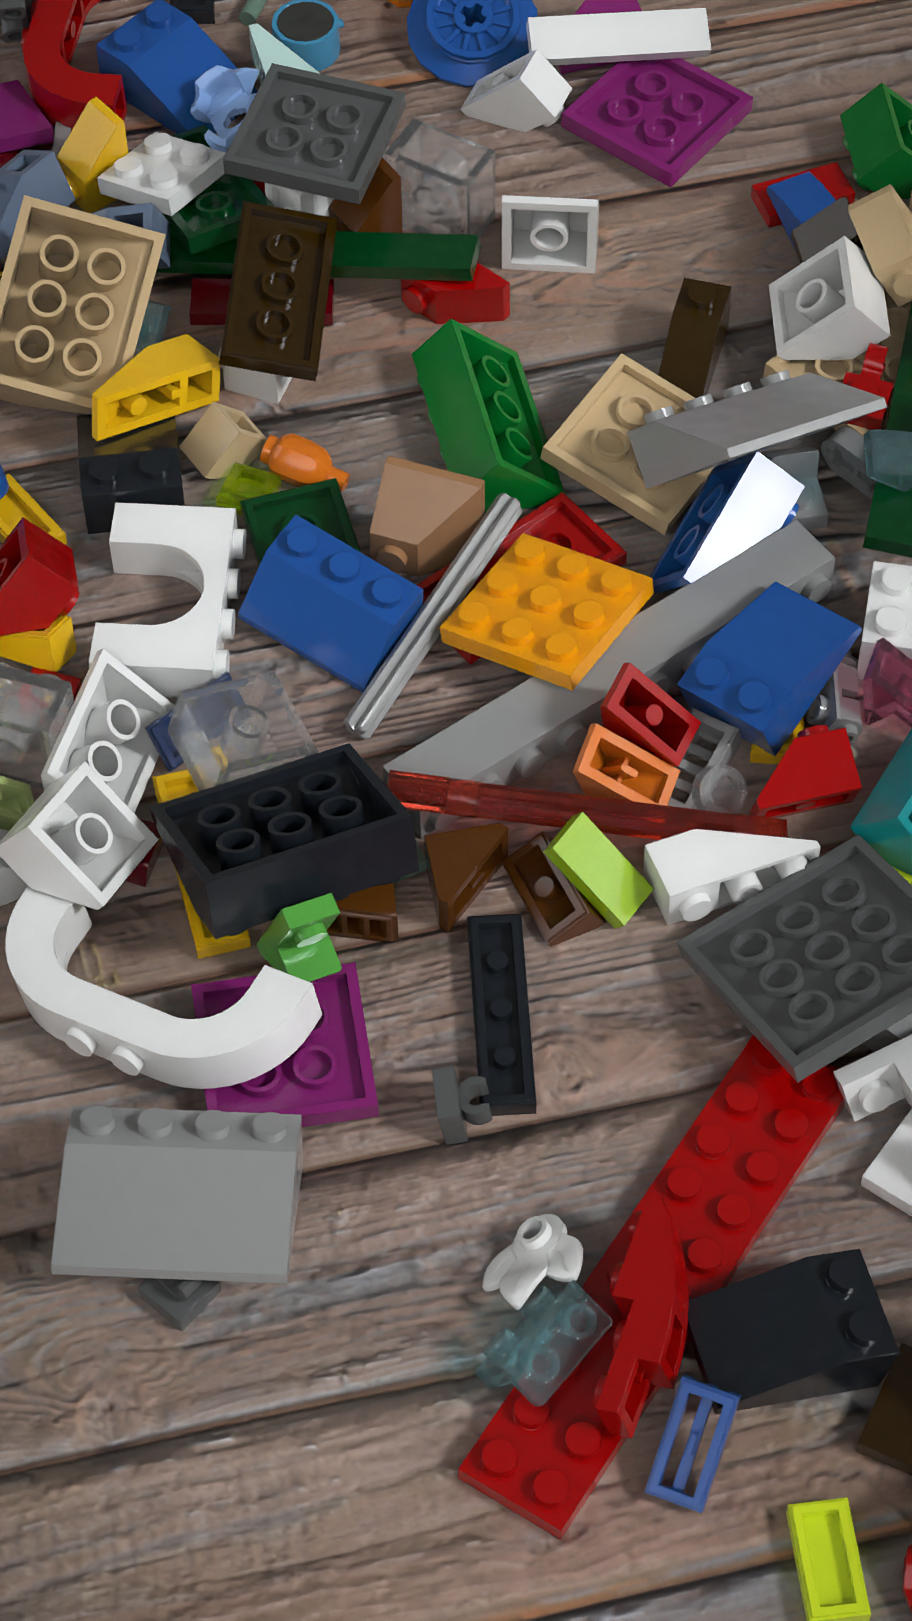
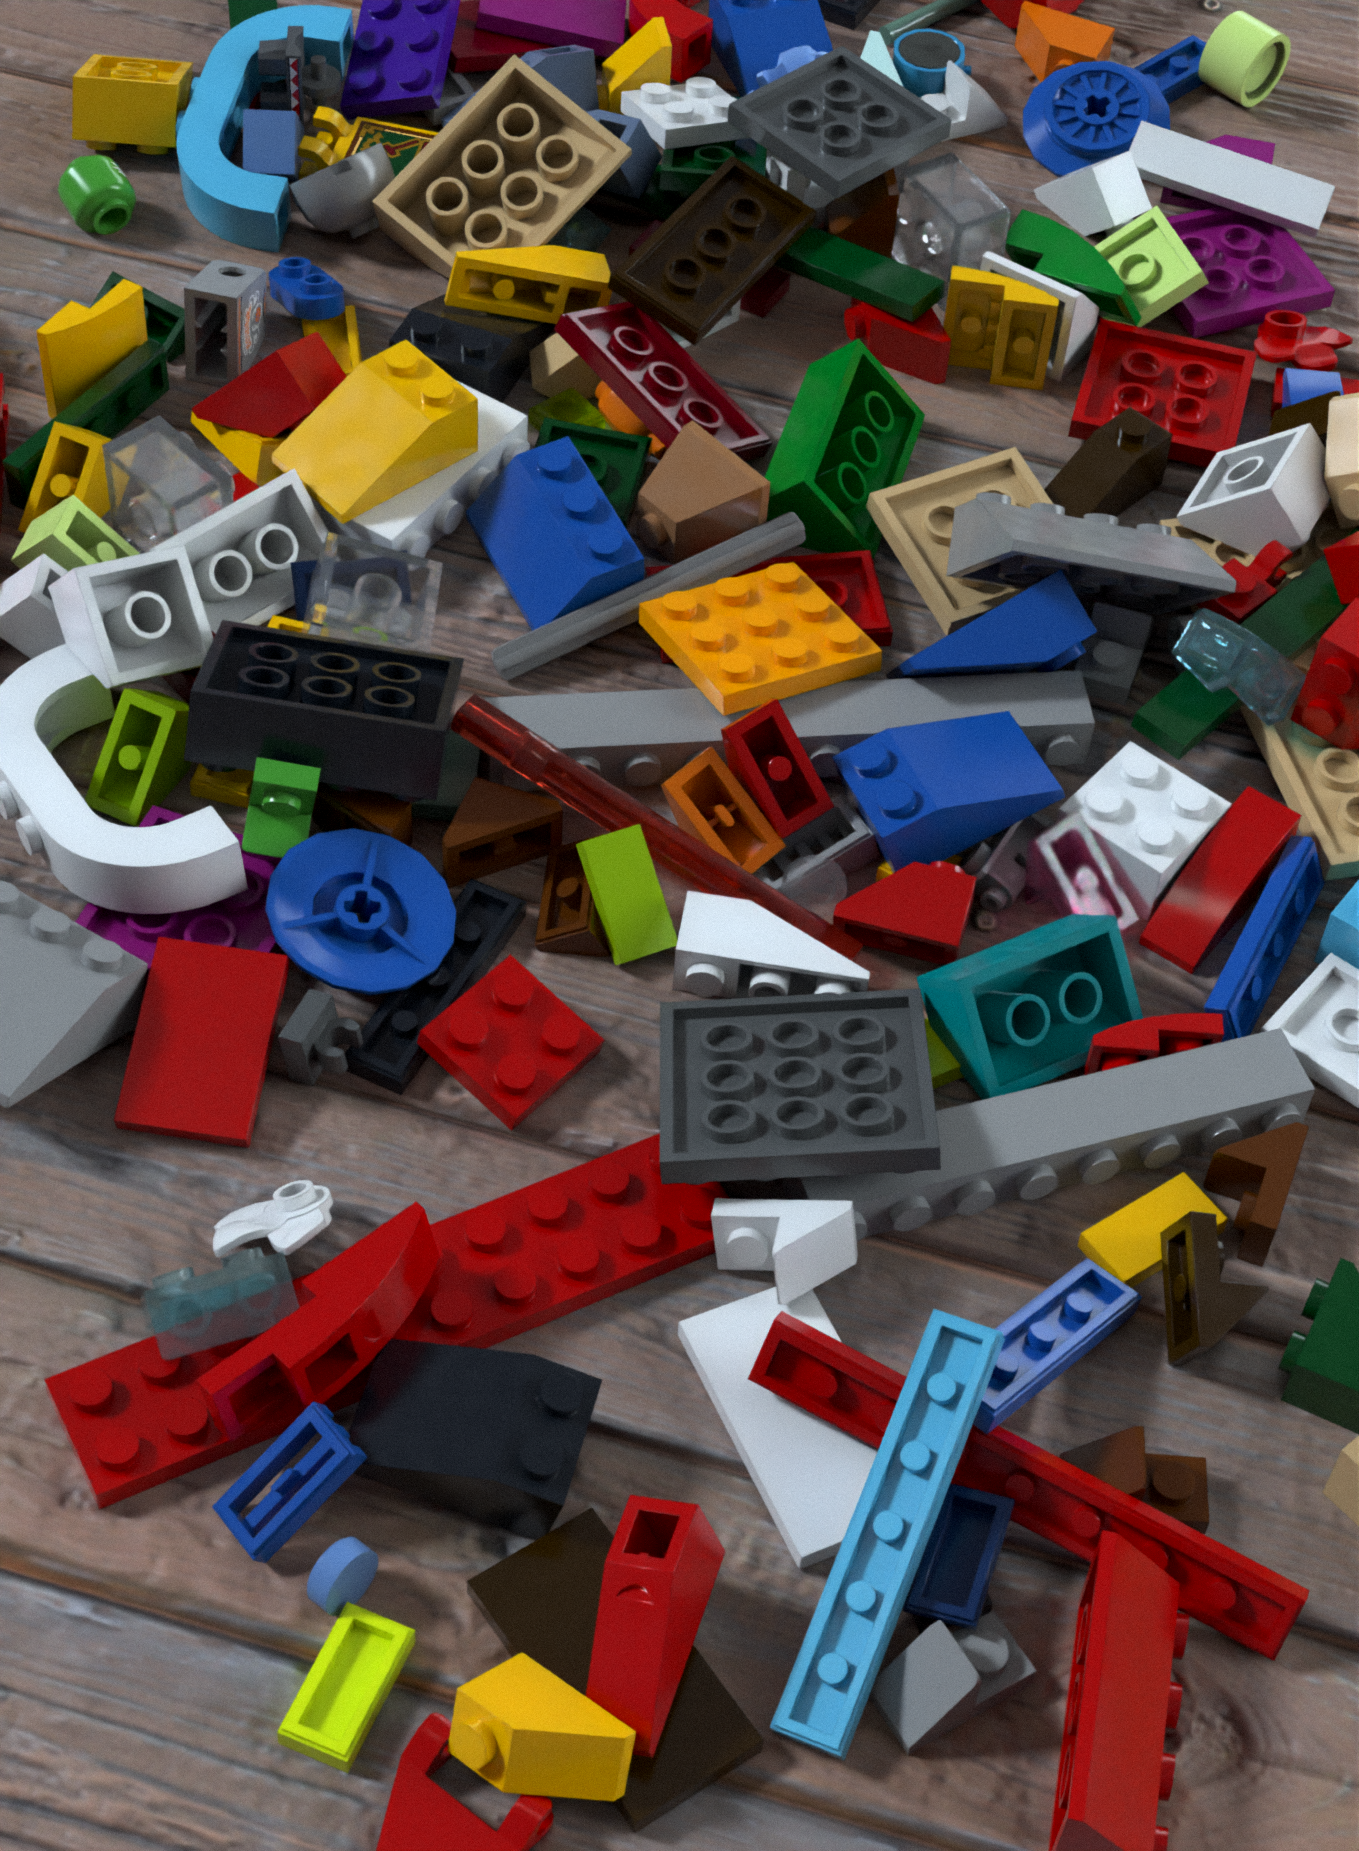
camera: 25 degrees right, 5 degrees down
(144, 583) = (381, 432): none -> yellow slope
(150, 946) = (140, 755): none -> lime slope
(312, 426) = (658, 377): none -> dark red tile
(356, 57) = (965, 104): none -> white slope
(376, 1152) = (202, 1042): none -> red tile
(425, 958) = (367, 873): none -> blue piece
(539, 251) = (999, 326): none -> yellow slope
(552, 172) = (1072, 261): none -> green slope
(592, 1030) = (510, 1042): none -> red plate
(601, 152) = (1152, 264): none -> yellowish green plate
(684, 235) = (1171, 379): none -> red plate
(751, 157) = (1288, 338): none -> red plate
(773, 1488) = (342, 1575): none -> medium blue tile

